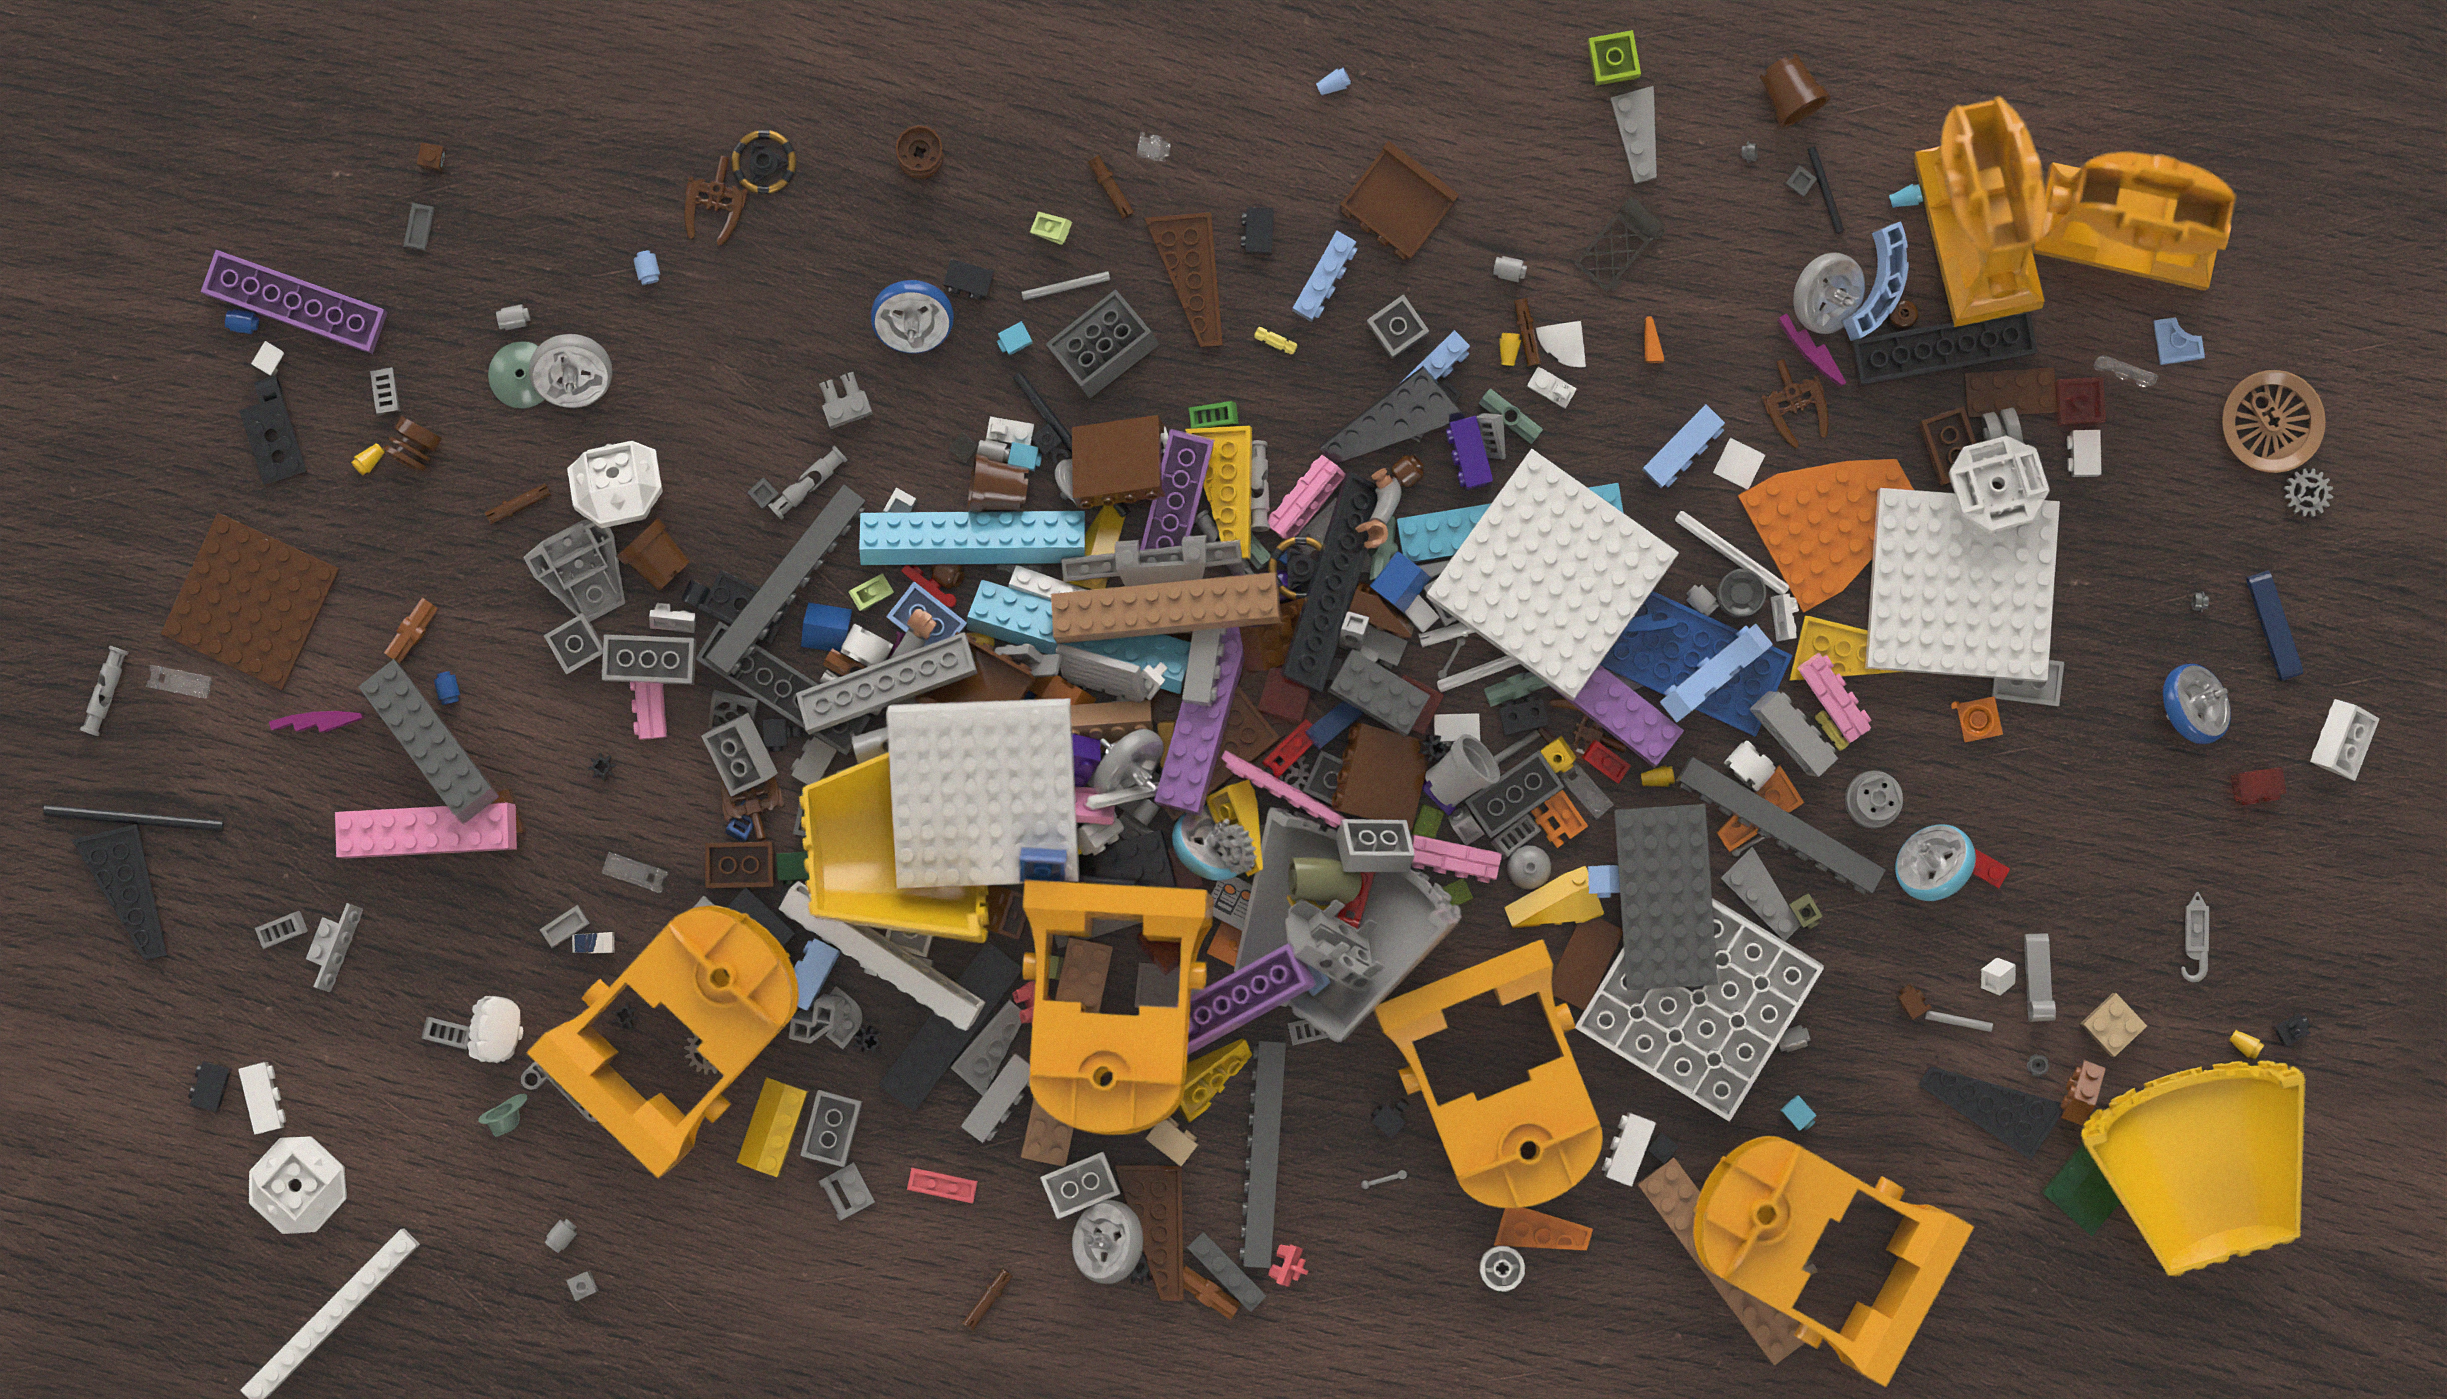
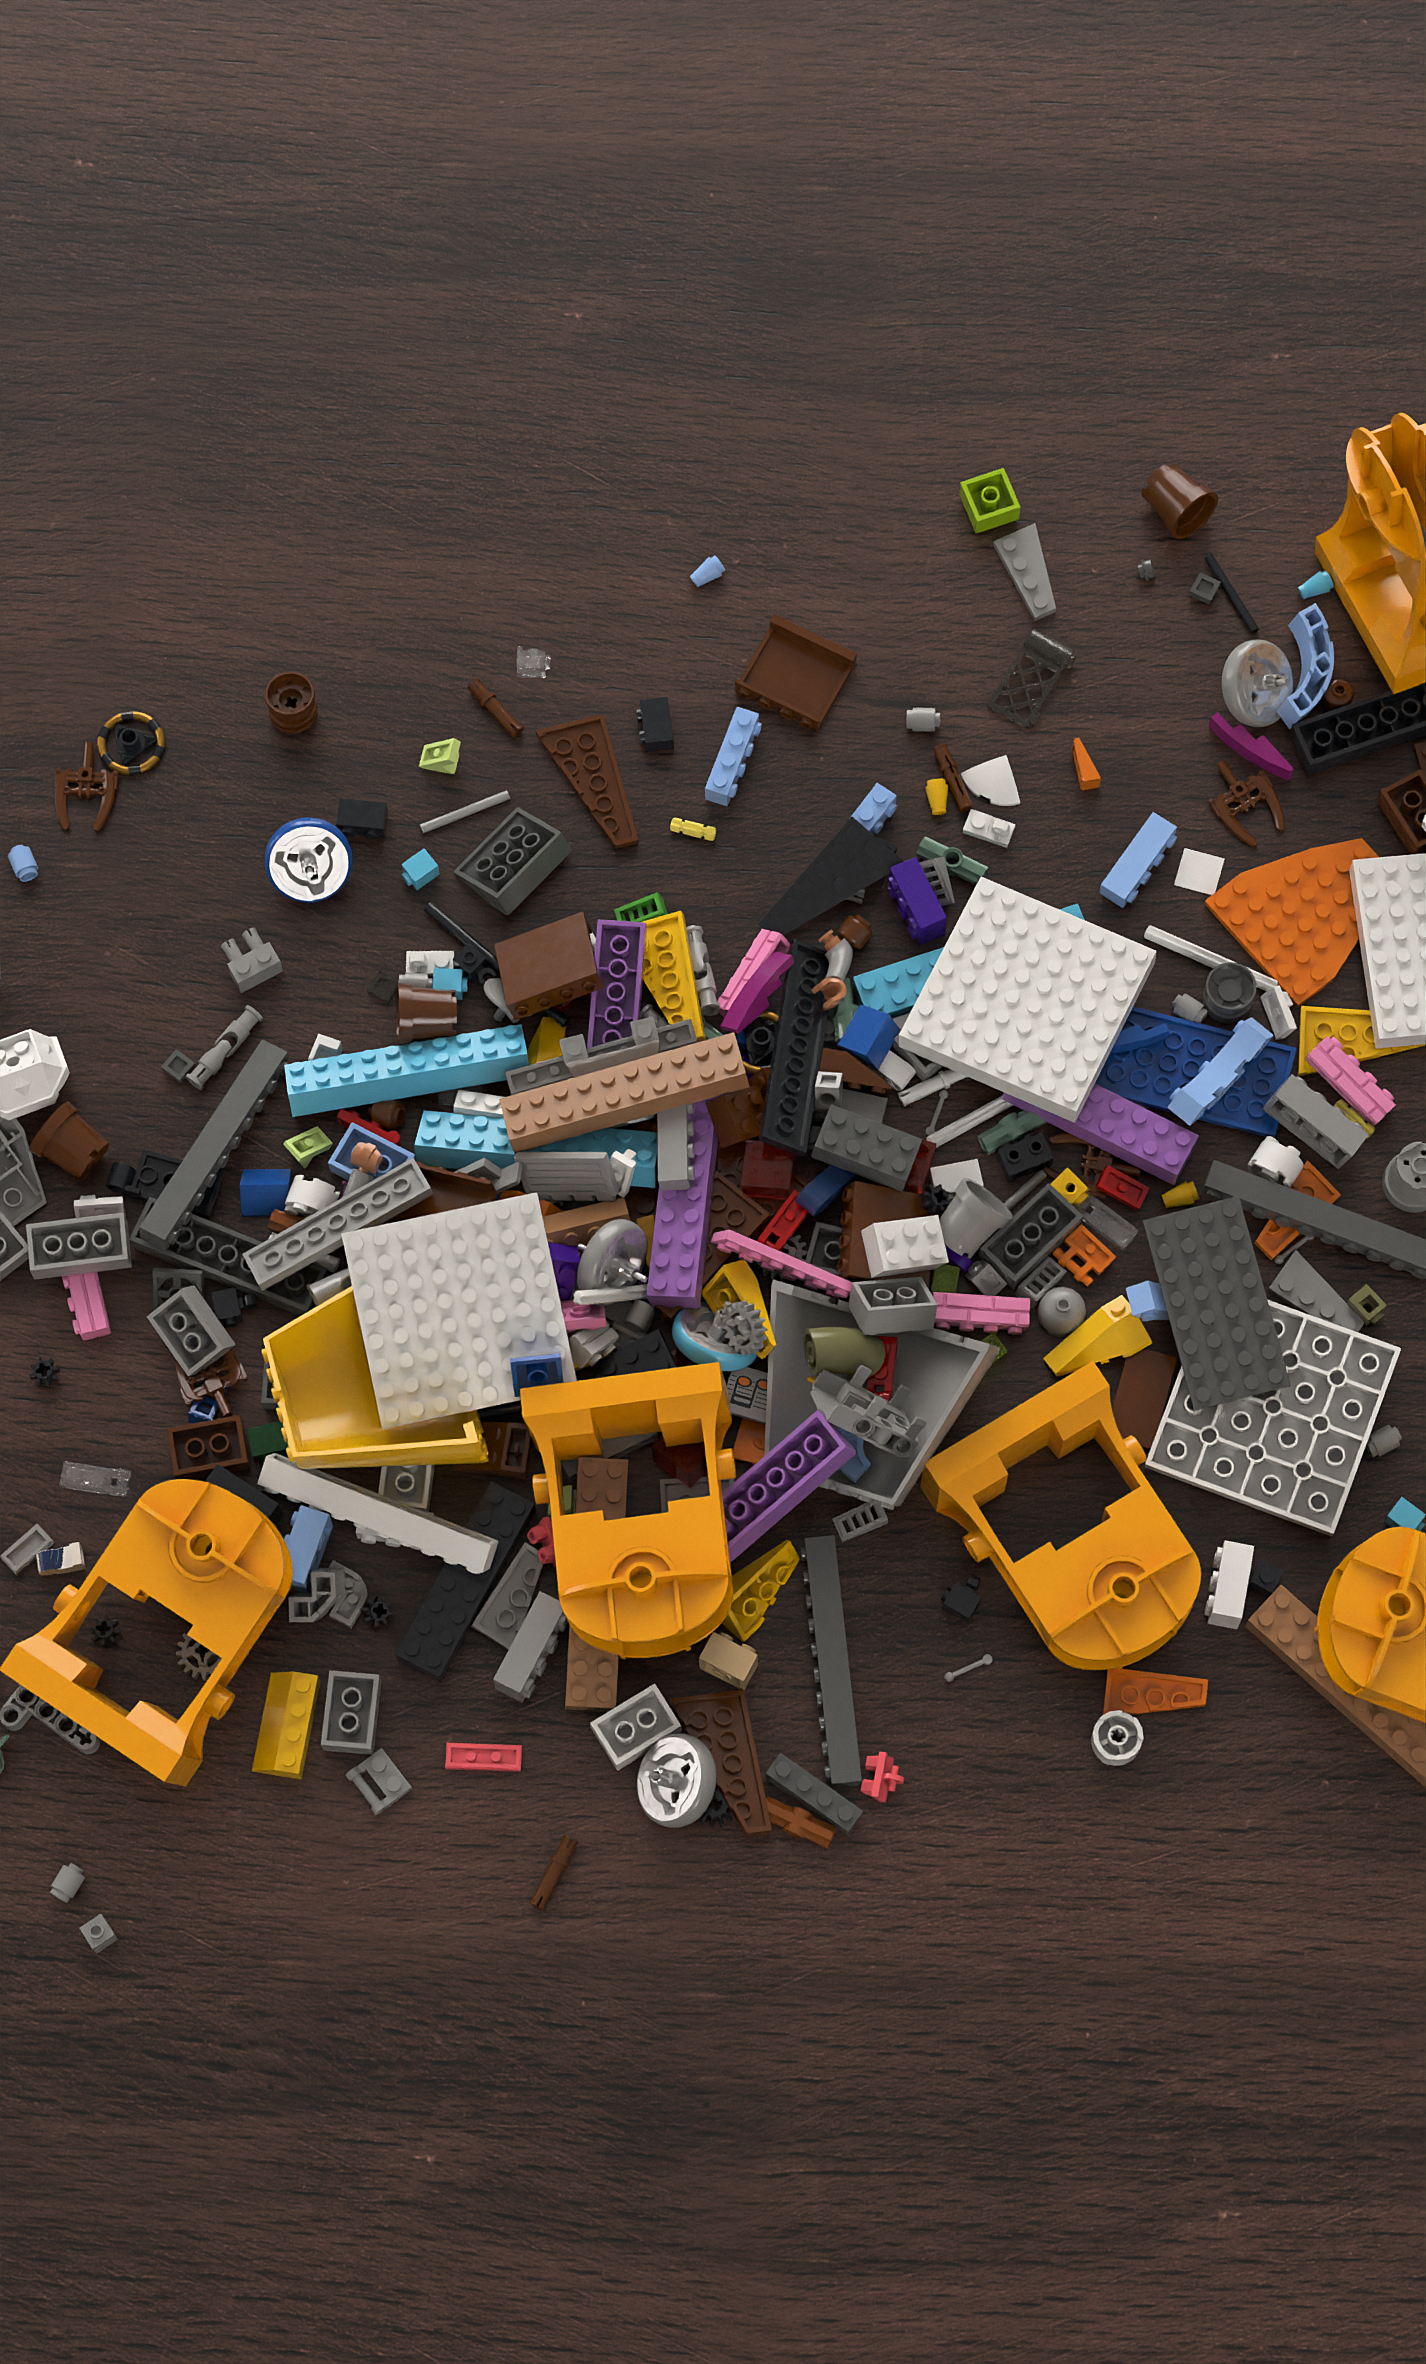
camera: 10 degrees left, 15 degrees down
(814, 761) = (271, 1319): light grey brick -> none
(1301, 525) = (753, 996): none -> magenta slope
(1396, 791) = (904, 1246): none -> white brick
(1397, 326) = (817, 791): light grey brick -> none

